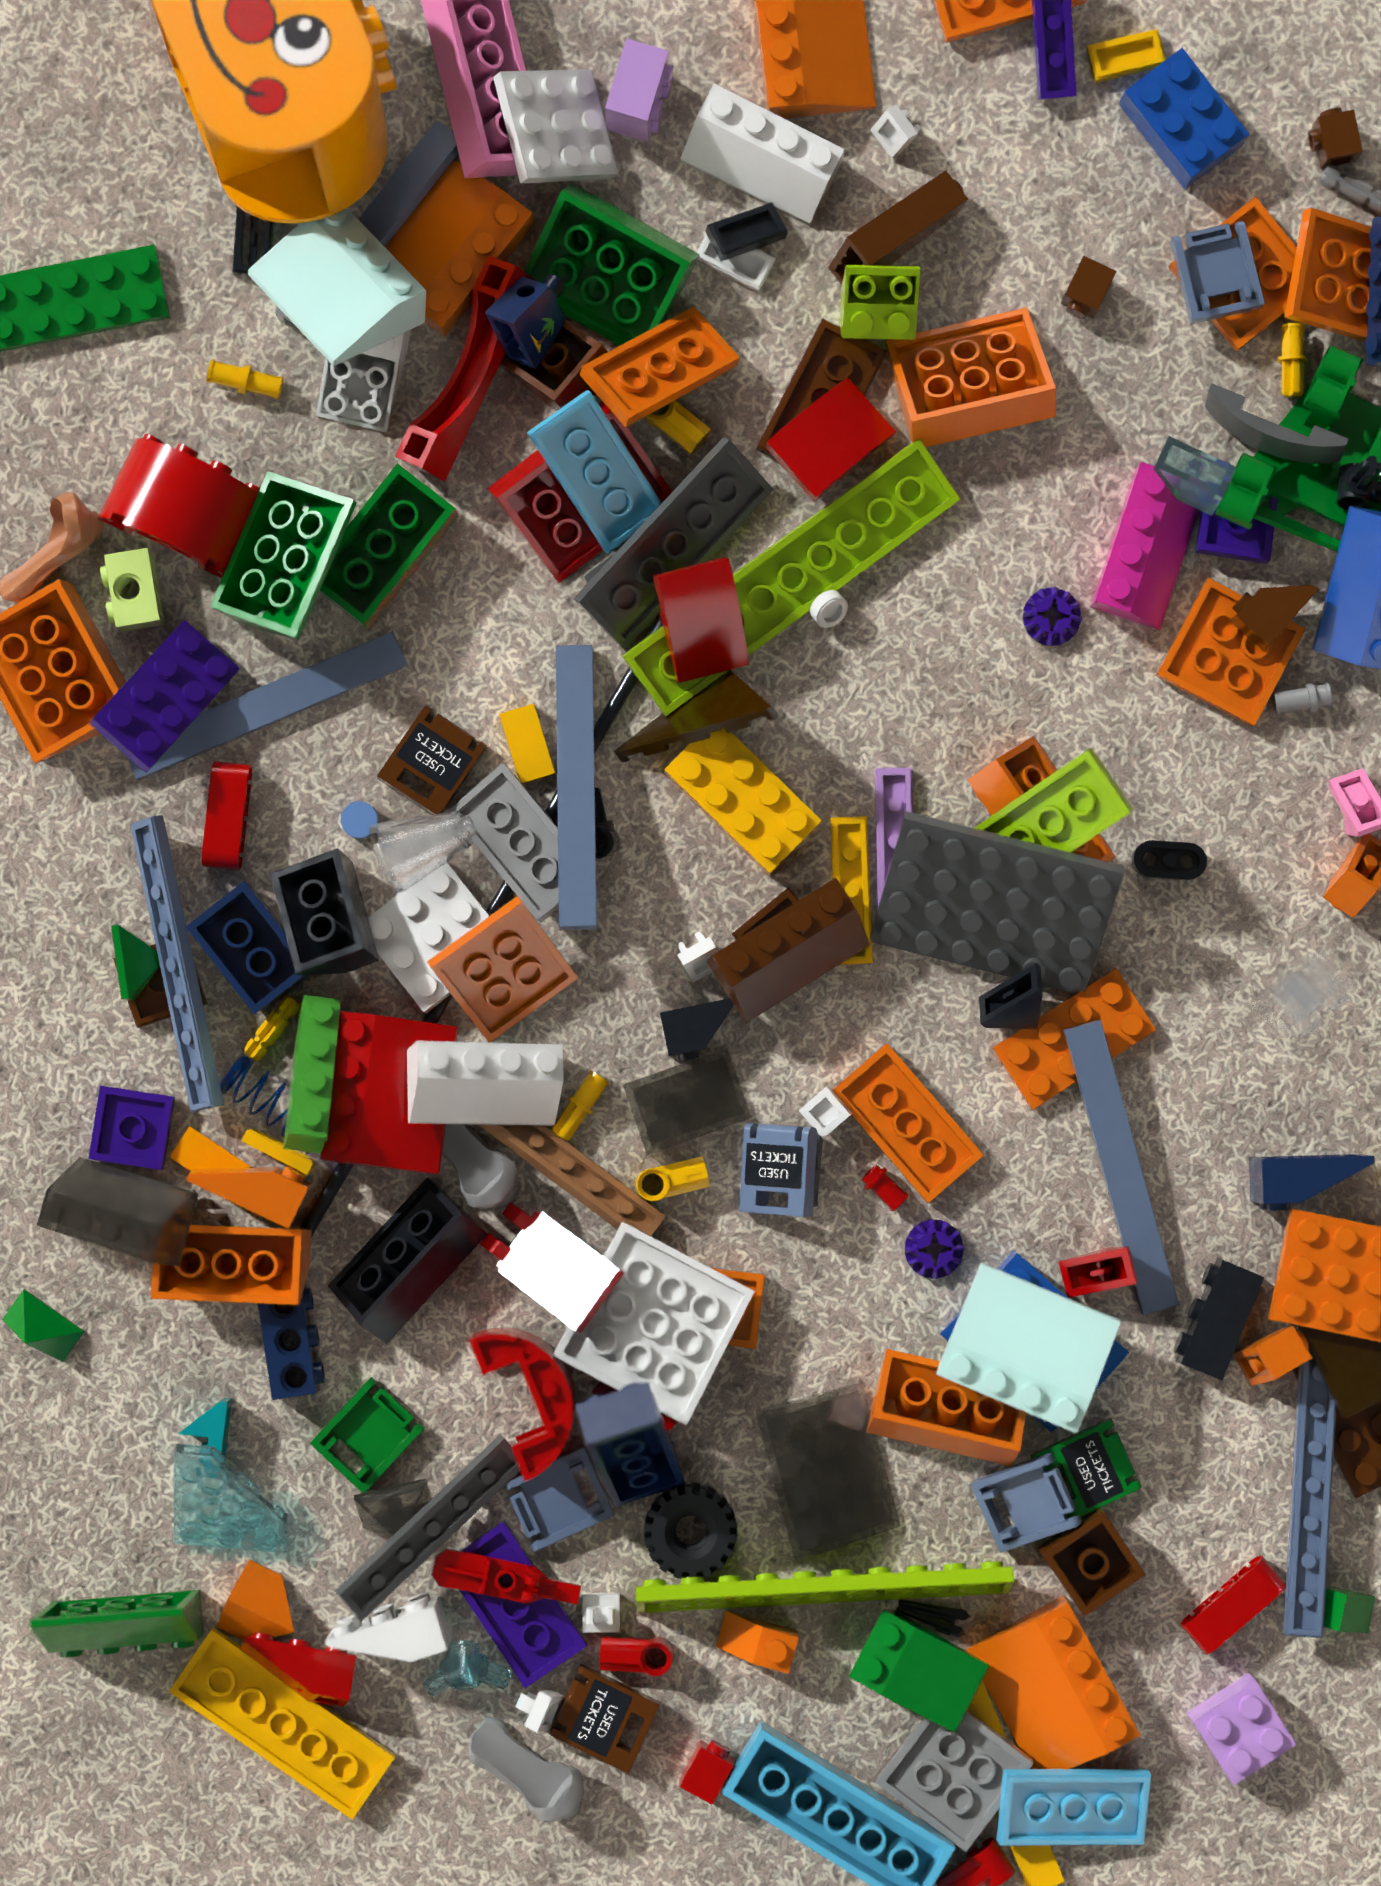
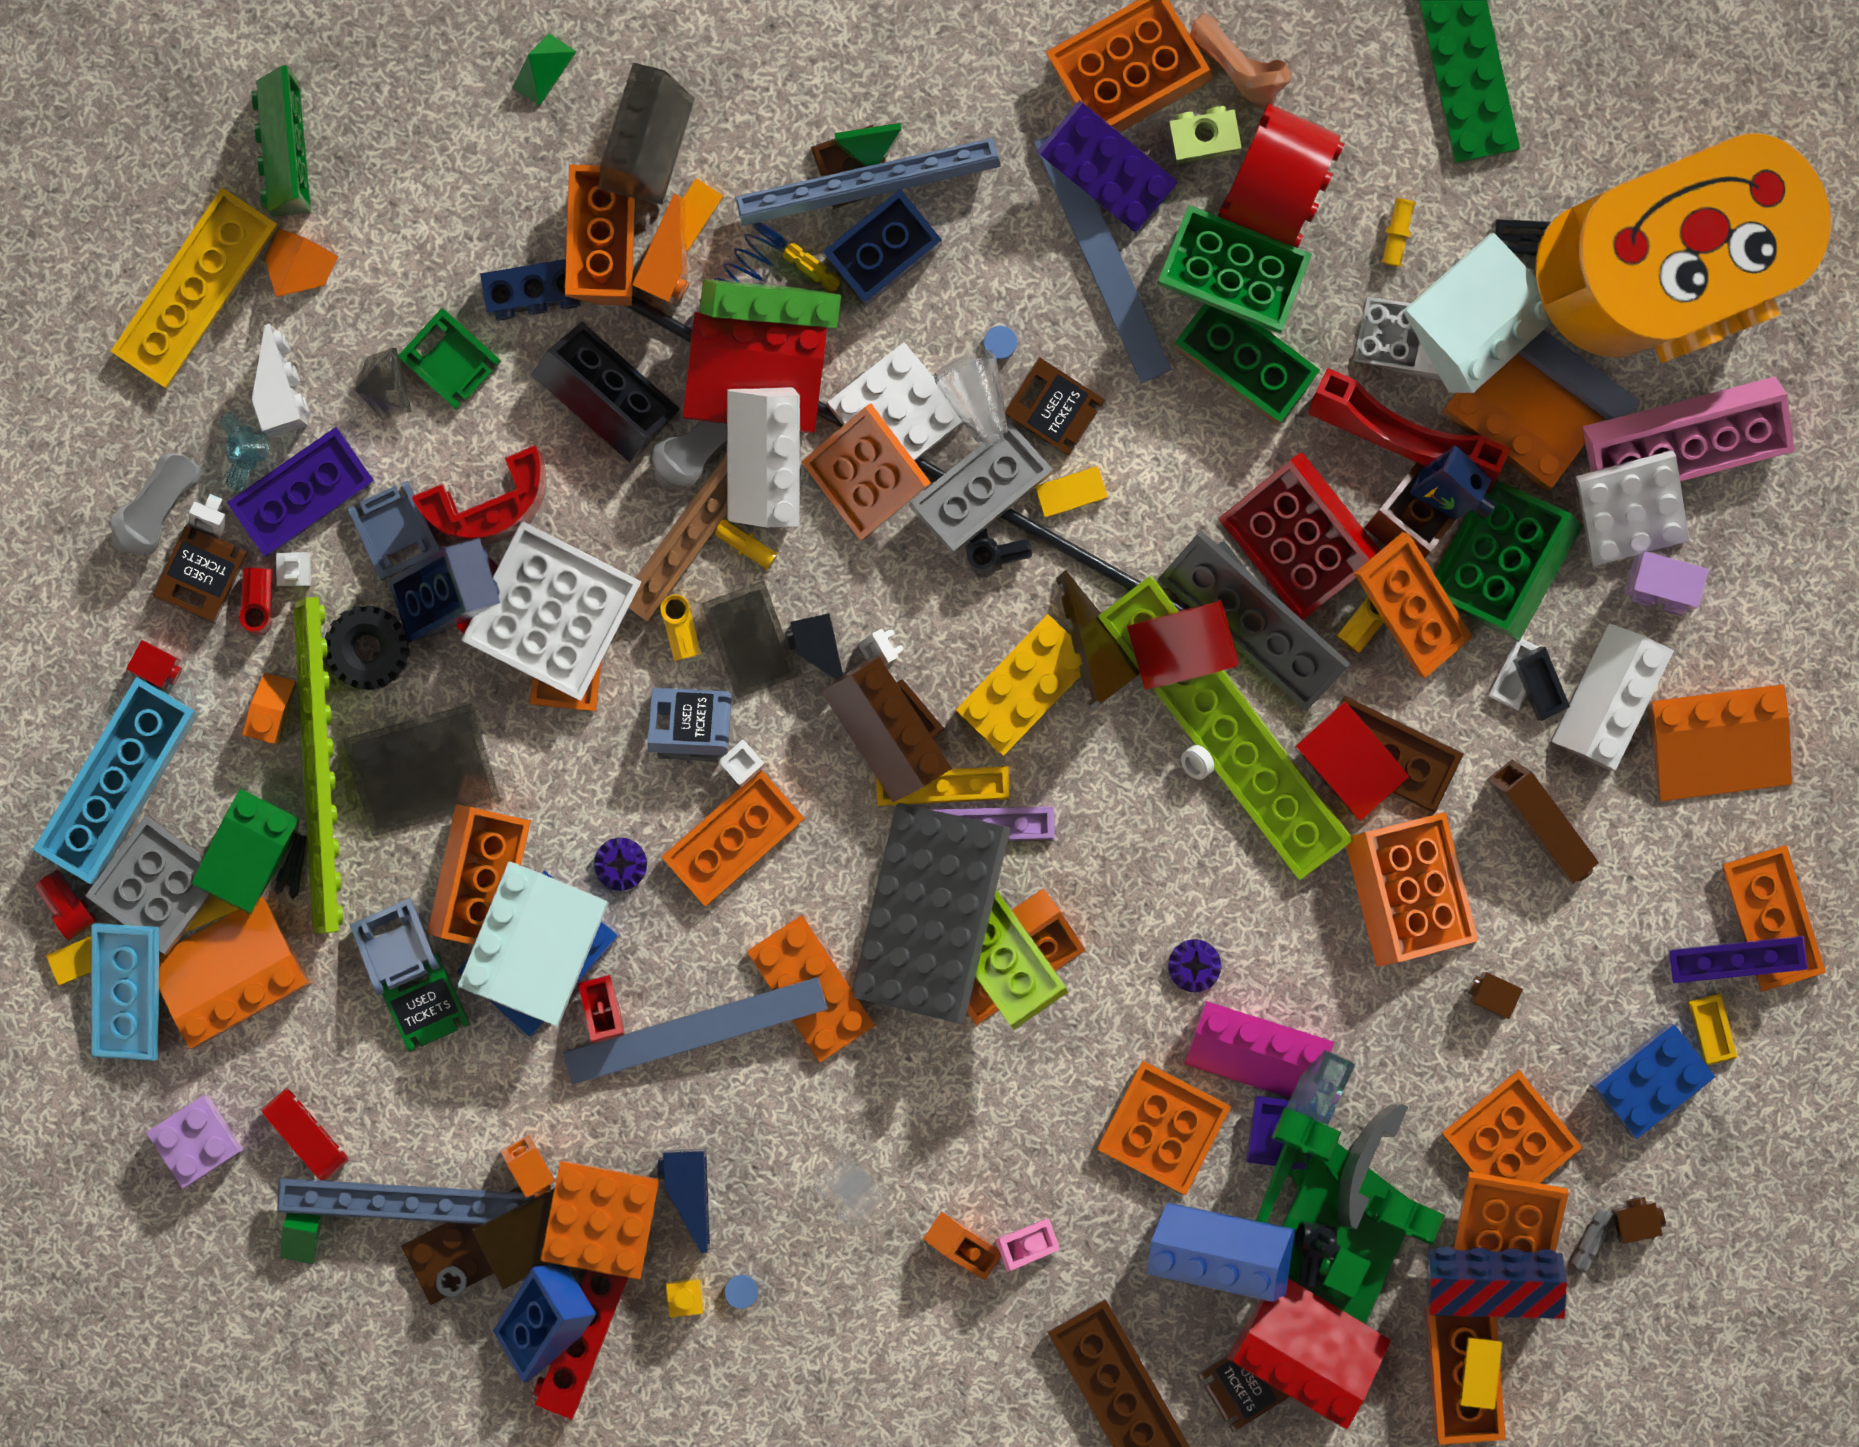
camera: 85 degrees right, 0 degrees up
(131, 1127) = (721, 144): dark purple plate -> none
(213, 1425) = (456, 224): teal slope -> none
(222, 1506) = (386, 230): clear light blue plate -> none
(225, 815) = (1003, 222): red beam -> none
(275, 1149) = (702, 272): yellow tile -> none
(309, 1671) = (240, 311): red slope -> none
(324, 915) = (912, 312): black slope -> none
(429, 1529) = (367, 414): dark grey plate -> none
(481, 1575) = (325, 462): red piece -> none
(554, 1267) = (600, 521): tile -> none
(576, 788) = (1030, 535): sand blue tile -> none
(595, 470) = (1316, 548): medium azure tile -> none
(879, 302) = (1474, 803): lime slope -> none
(884, 1187) = (675, 818): red pin -> none
(894, 131) = (1637, 817): white tile -> none
(1014, 1002) = (842, 931): black slope -> none
(1091, 1561) = (342, 1005): reddish brown brick -> none
(1168, 860) = (973, 1073): black plate -> none
(1217, 267) = (1515, 1111): sand blue container -> none
(1218, 1318) = (560, 1118): black brick -> none
(1269, 611) = (1199, 1160): reddish brown slope -> none
(1292, 360) = (1432, 1183): yellow axle -> none
(1302, 699) = (1122, 1194): light grey pin -> none

